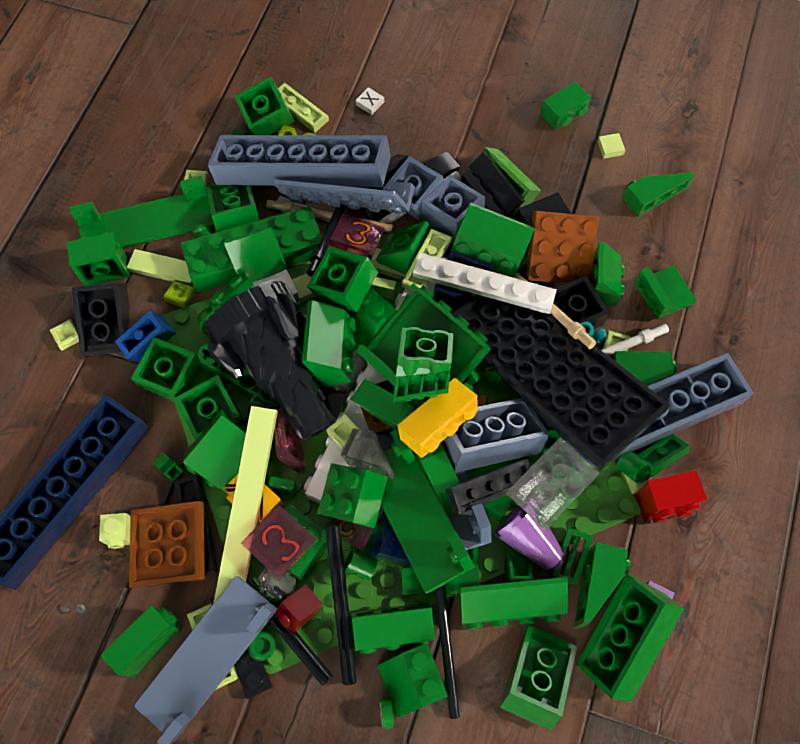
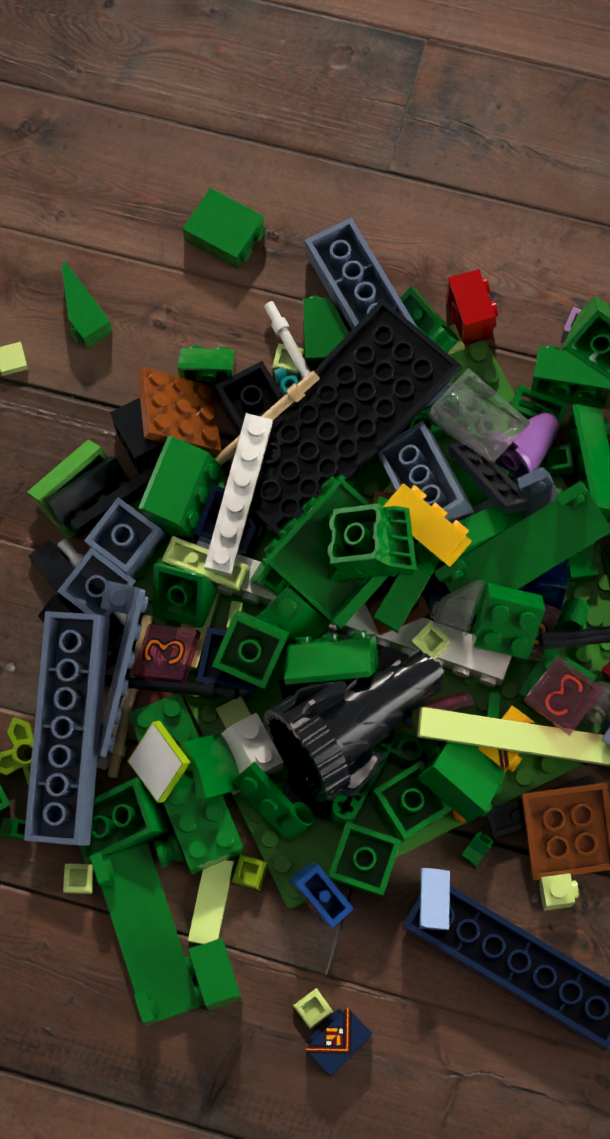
camera: 90 degrees left, 5 degrees up
(33, 349) = (337, 1041): none -> brick
(101, 317) = (291, 961): black slope -> none
(118, 417) = (434, 899): none -> slope
(263, 218) = (158, 761): none -> white tile
(664, 291) = (219, 304): green bracket -> none
(737, 297) = (224, 228): none -> green brick

